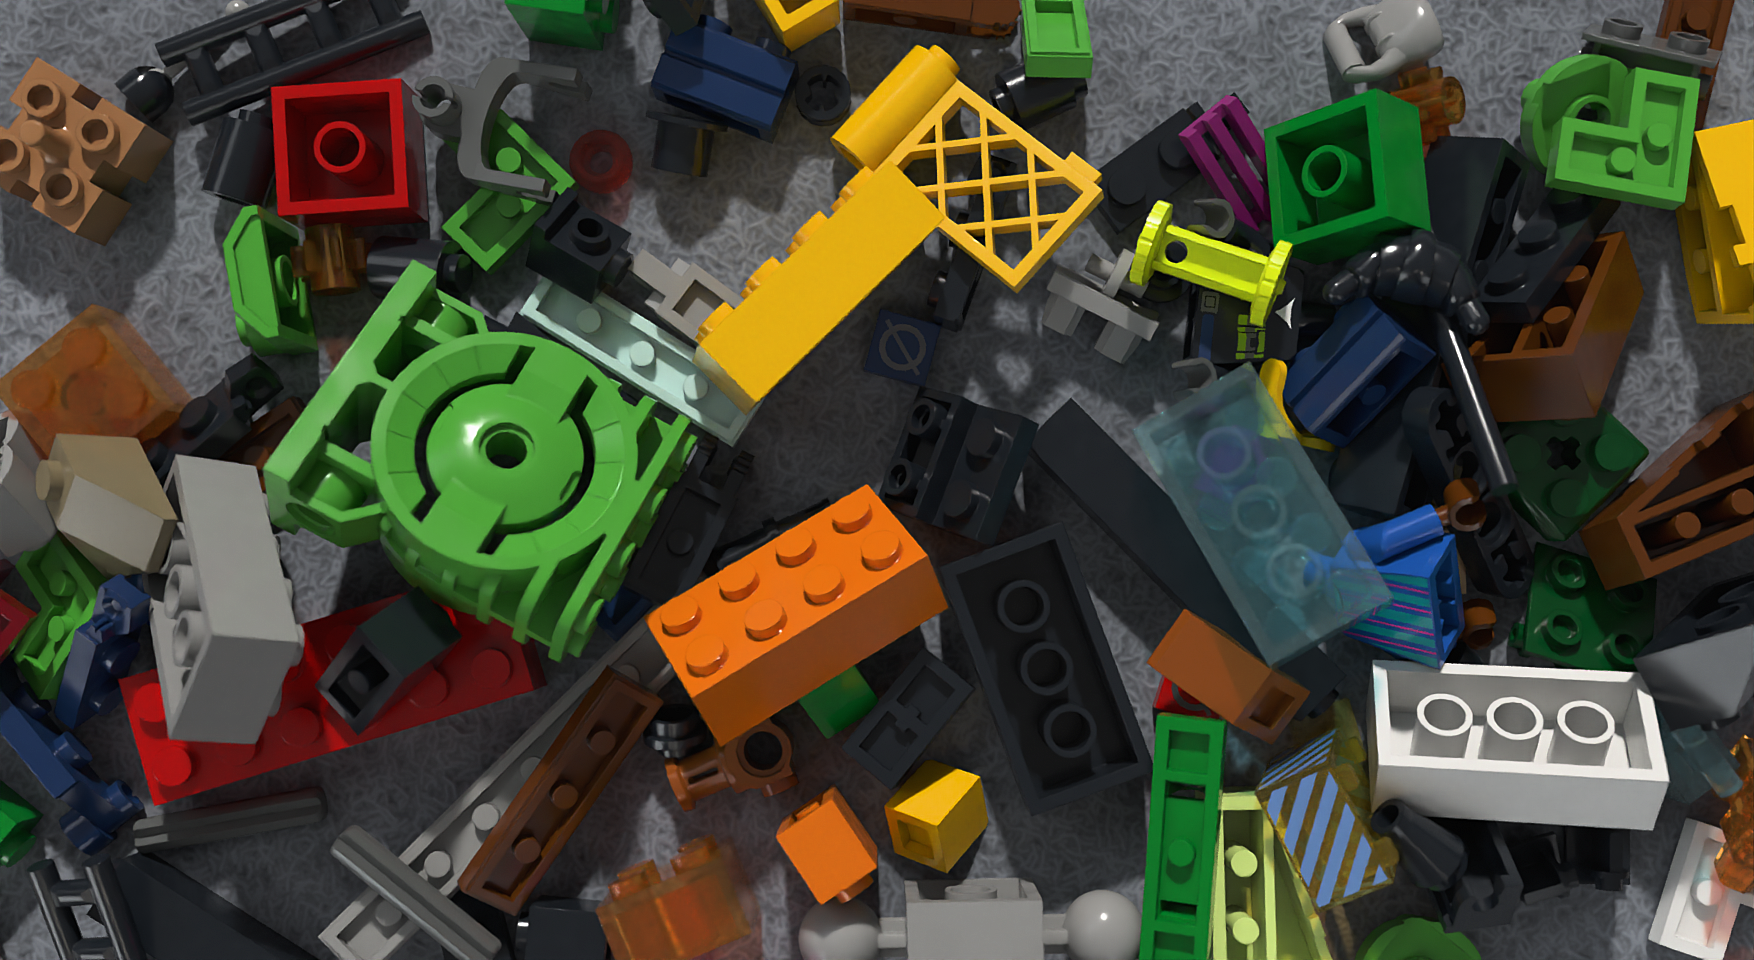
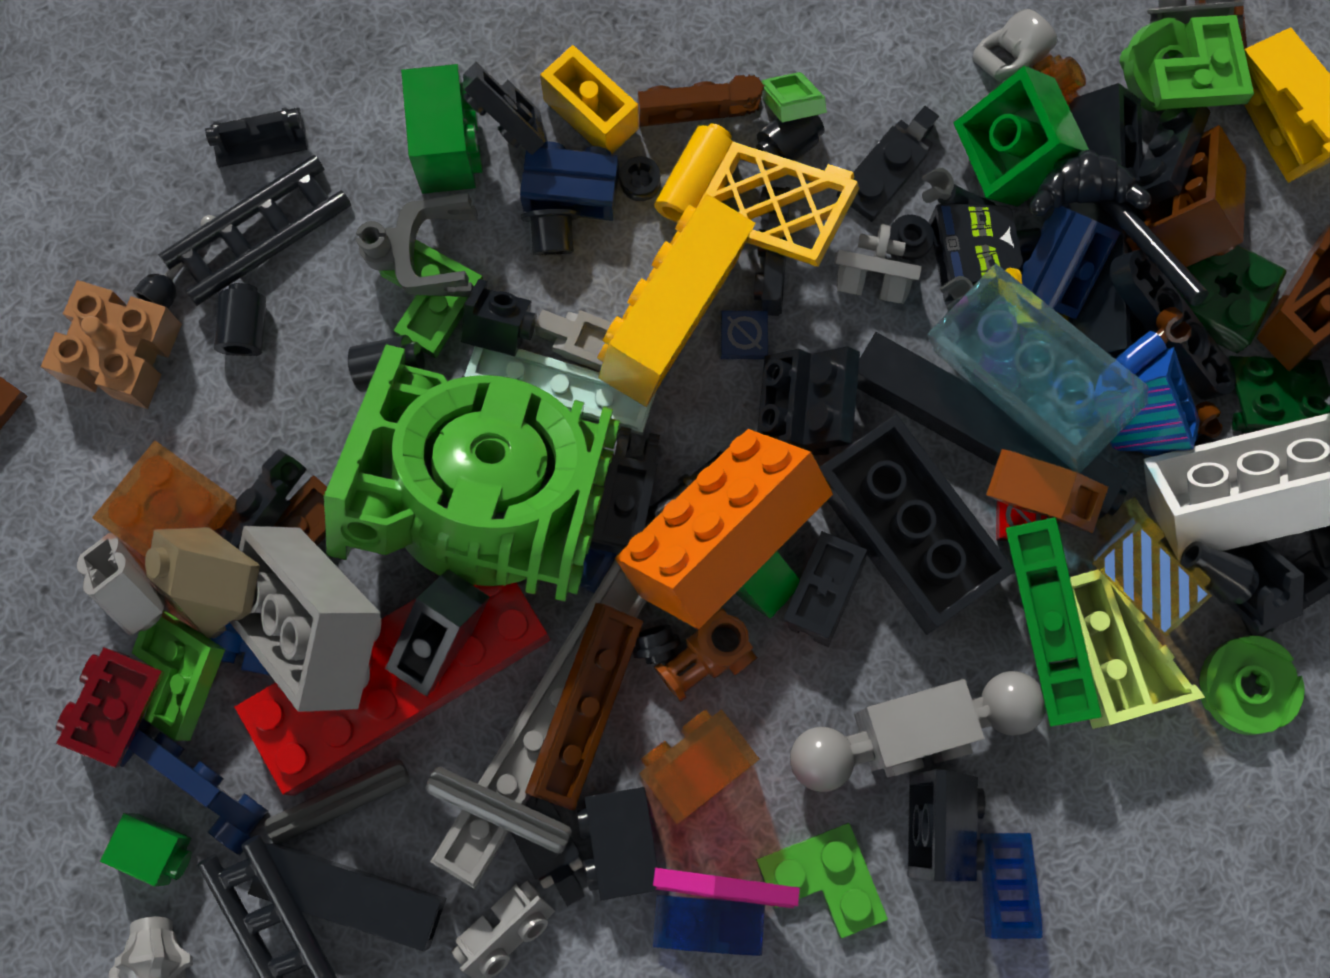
camera: 15 degrees left, 10 degrees down
(102, 653) = (218, 689): dark blue hinge -> none
(267, 300) = (280, 401): bright green slope -> none
(331, 259) = (320, 372): clear orange gear -> none
(349, 154) = (316, 295): red brick -> none
(587, 147) = (493, 247): clear red plate -> none
(829, 846) = (796, 691): orange brick -> none
(937, 815) = (865, 656): yellow panel -> none
(1211, 263) = (947, 213): neon yellow hose -> none
(1254, 147) = (943, 142): magenta tile -> none

